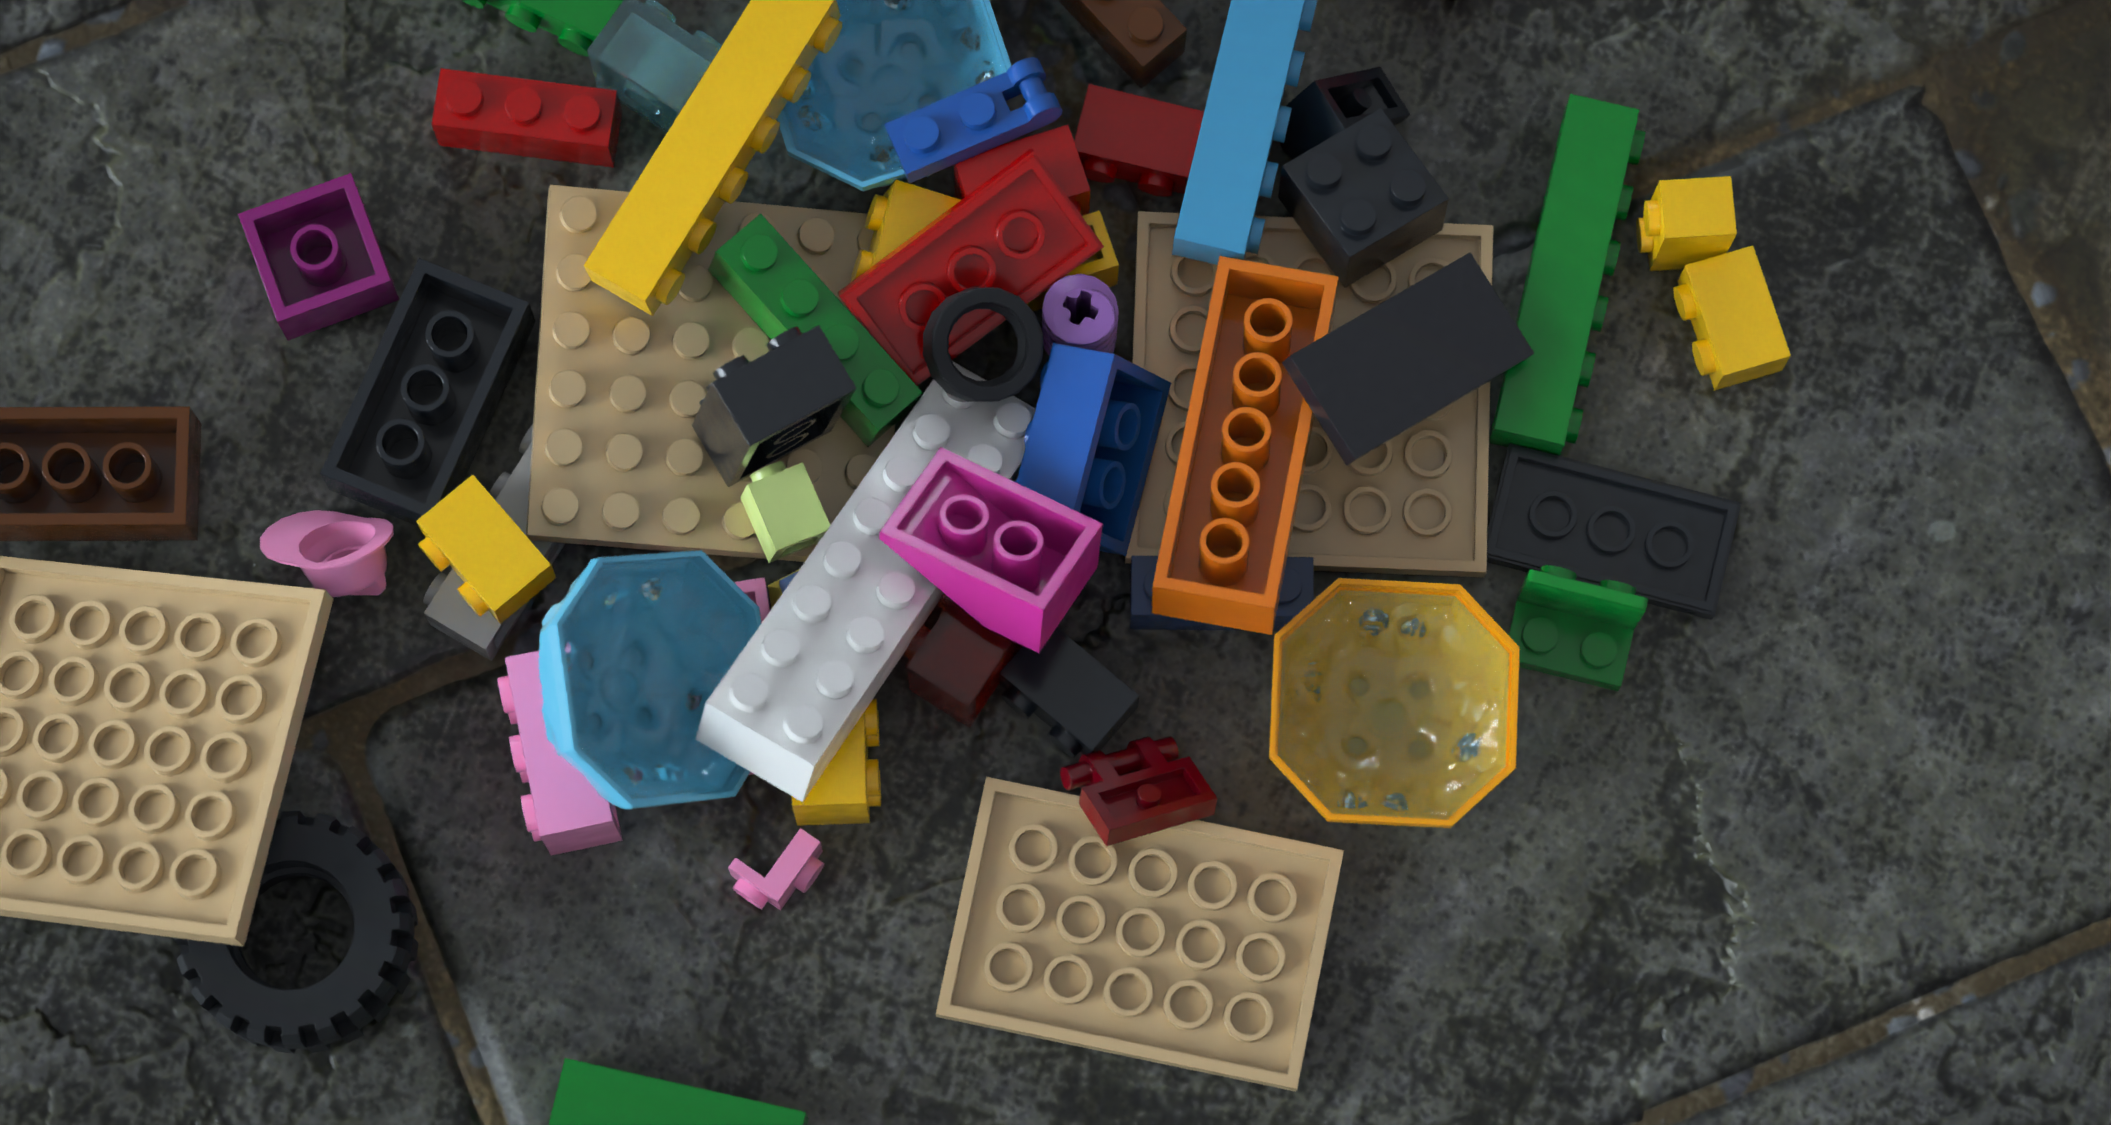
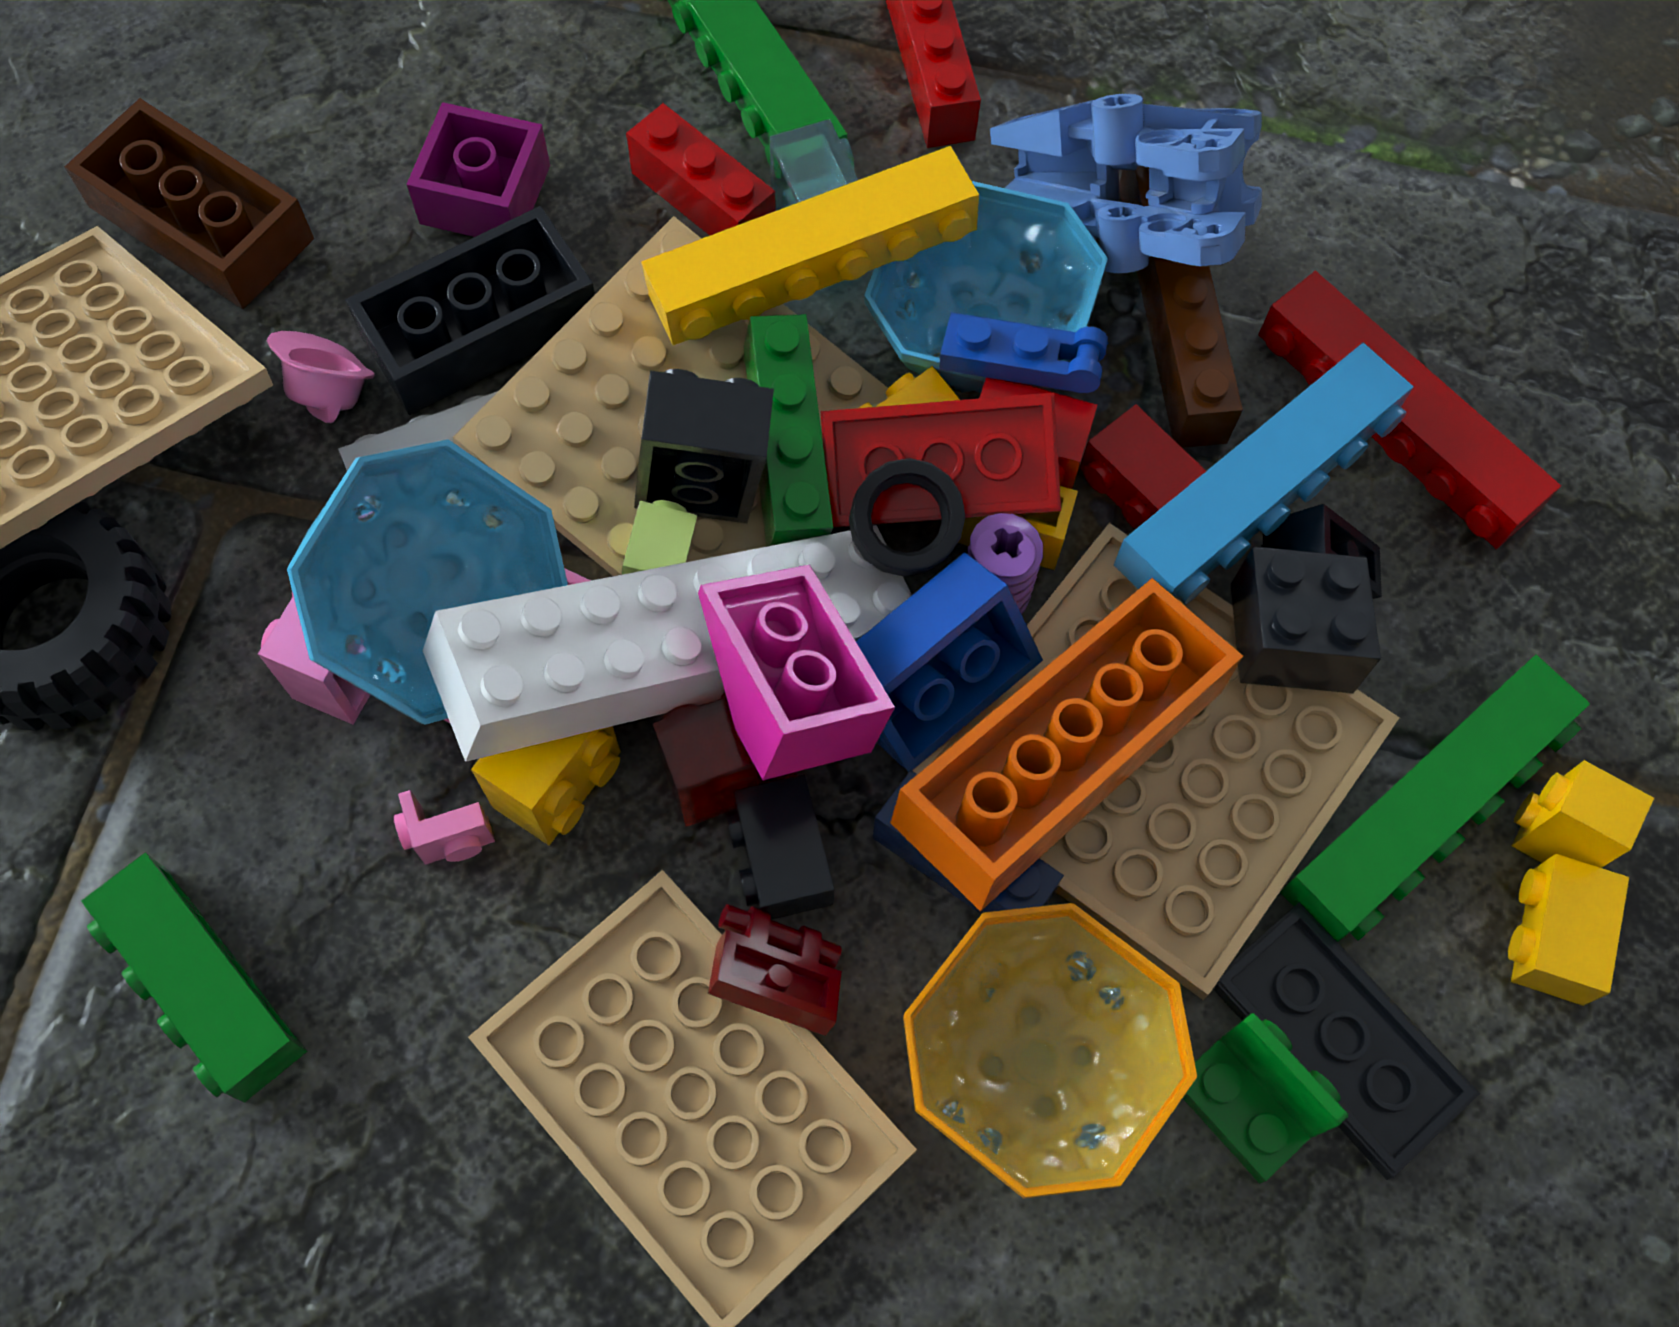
camera: 35 degrees right, 10 degrees down
(485, 550) = (409, 405): yellow brick -> none
(1407, 358) = (1258, 760): black tile -> none

